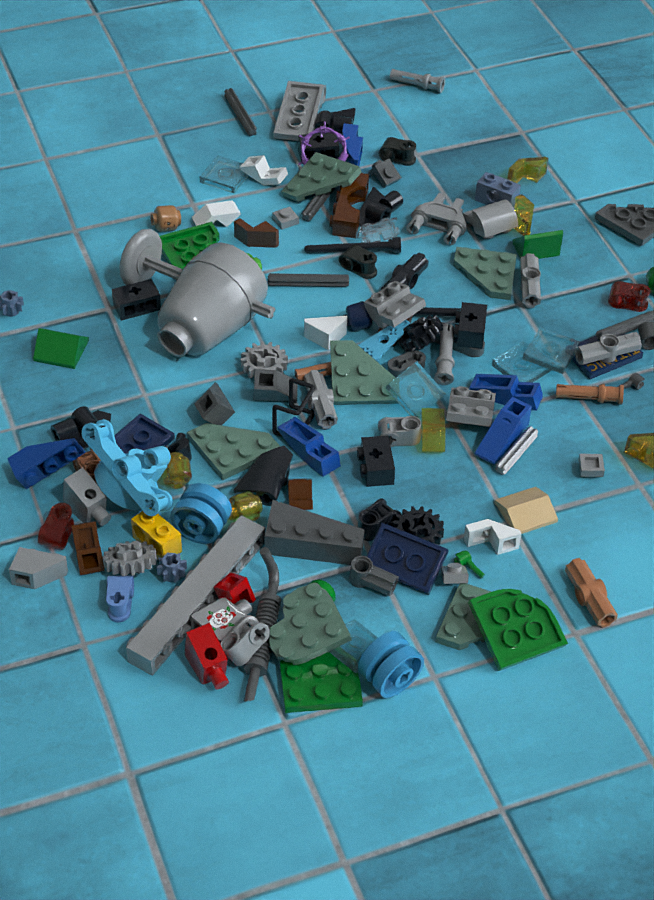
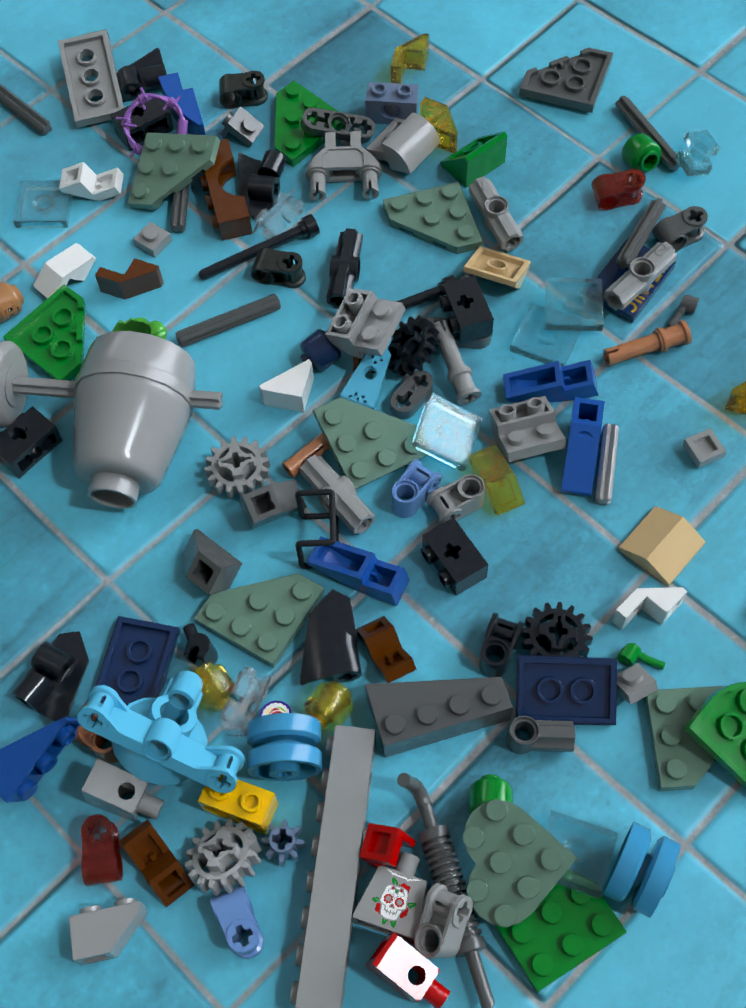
camera: 20 degrees left, 15 degrees up
(198, 475) = (251, 693): none -> clear hinge
(369, 414) = (414, 484): none -> medium blue piece
(426, 182) = (289, 136): none -> green plate
(435, 189) = (346, 118): none -> dark grey beam
(512, 313) = (497, 267): none -> tan slope

